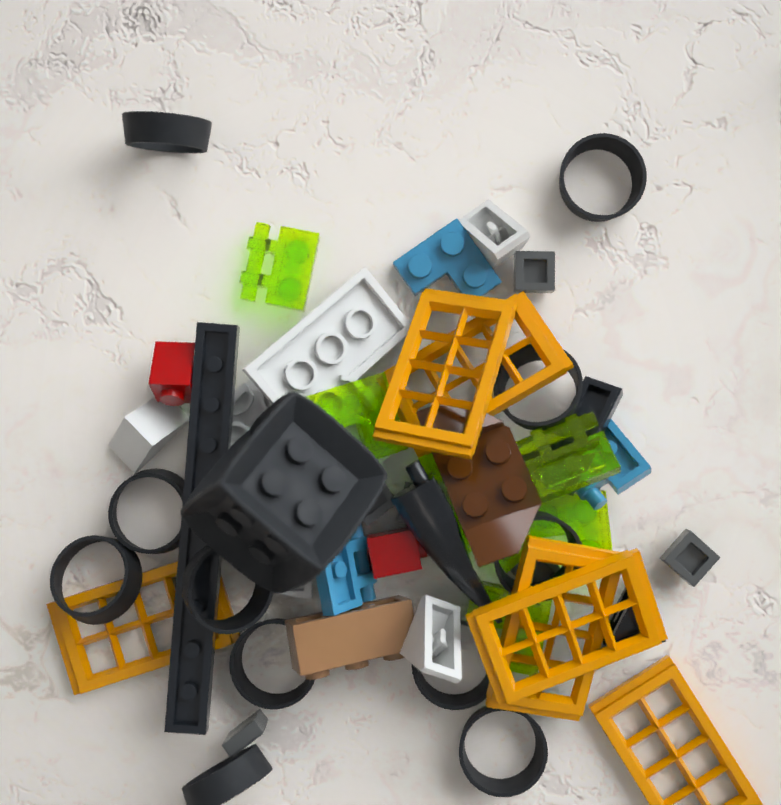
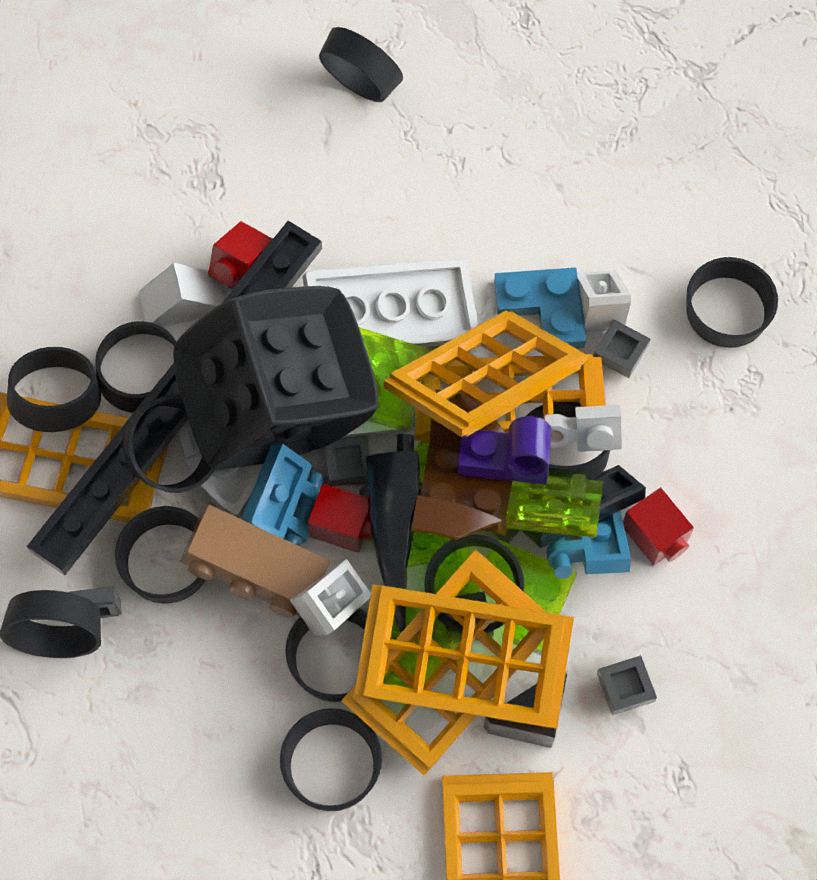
camera: 25 degrees right, 20 degrees down
(291, 268) = (398, 232): clear neon green plate -> none
(511, 439) = (509, 456): none -> dark purple plate
(562, 376) = (592, 428): none -> white plate
(647, 414) = (658, 527): none -> red brick

